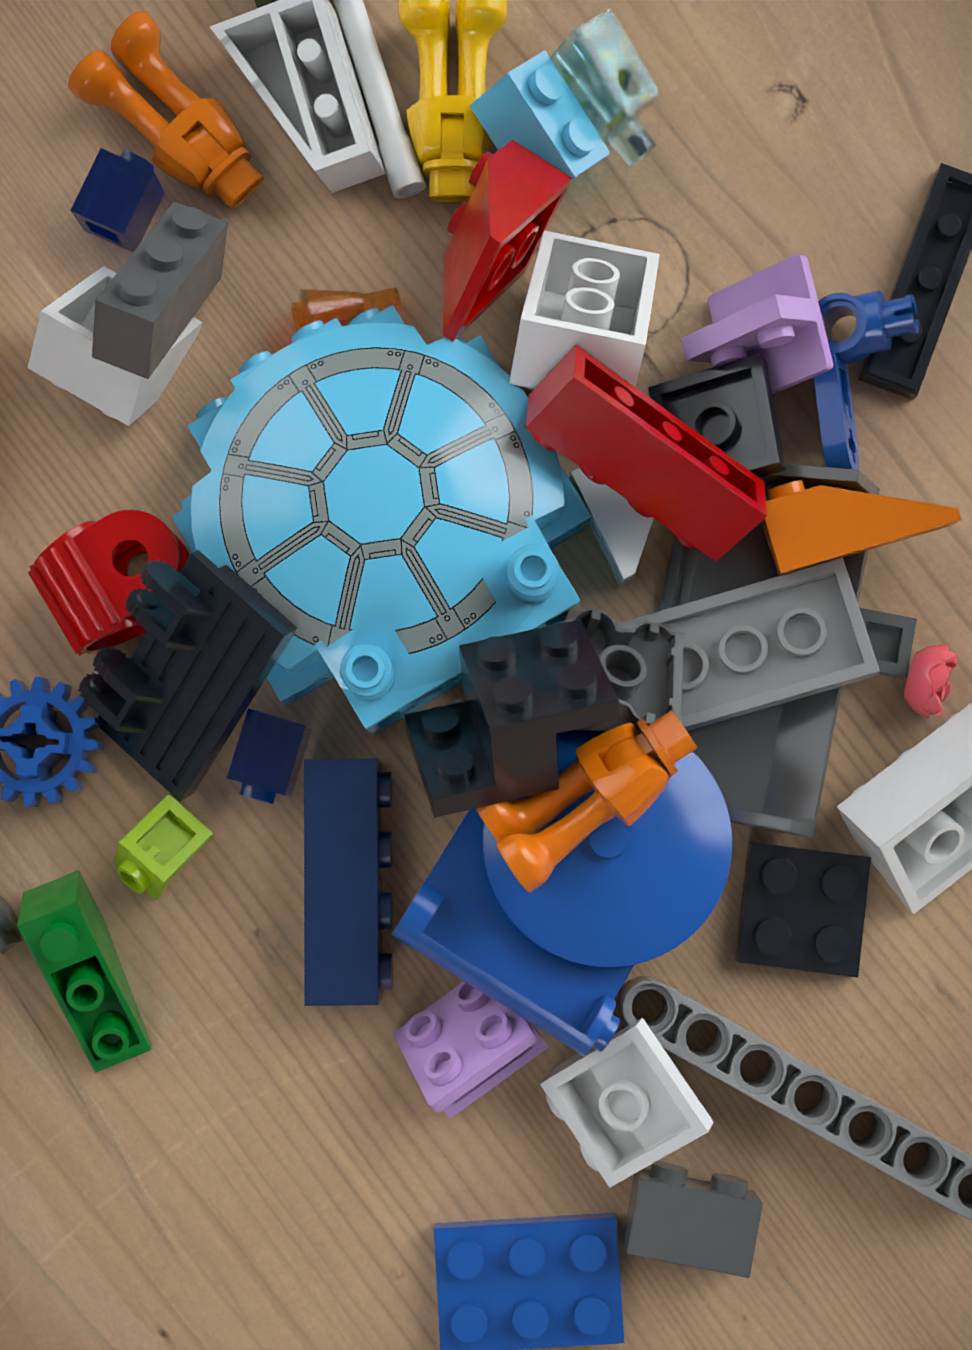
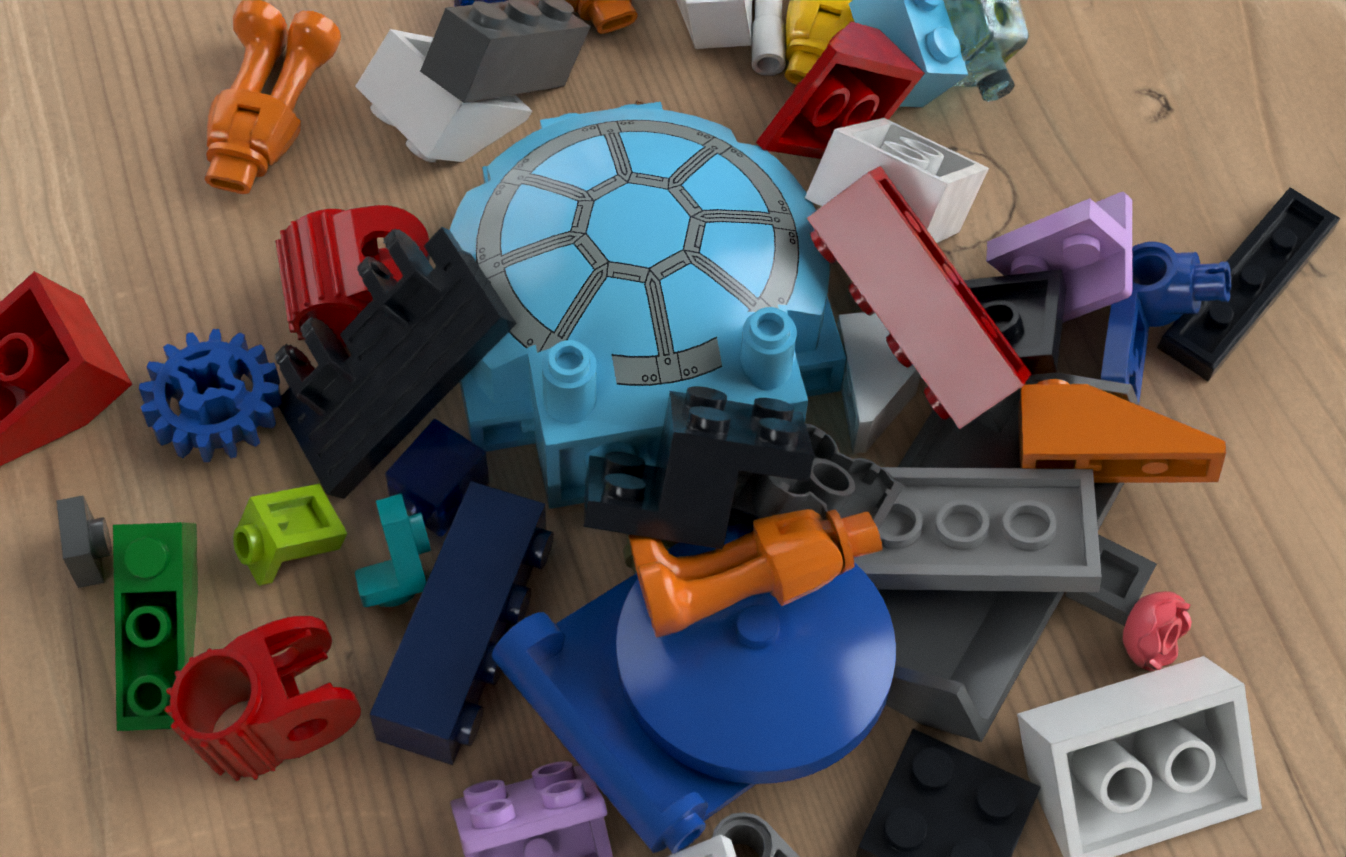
camera: 15 degrees right, 25 degrees down
(156, 1051) = (278, 718): none -> red piece
(270, 854) = (402, 576): none -> teal bracket

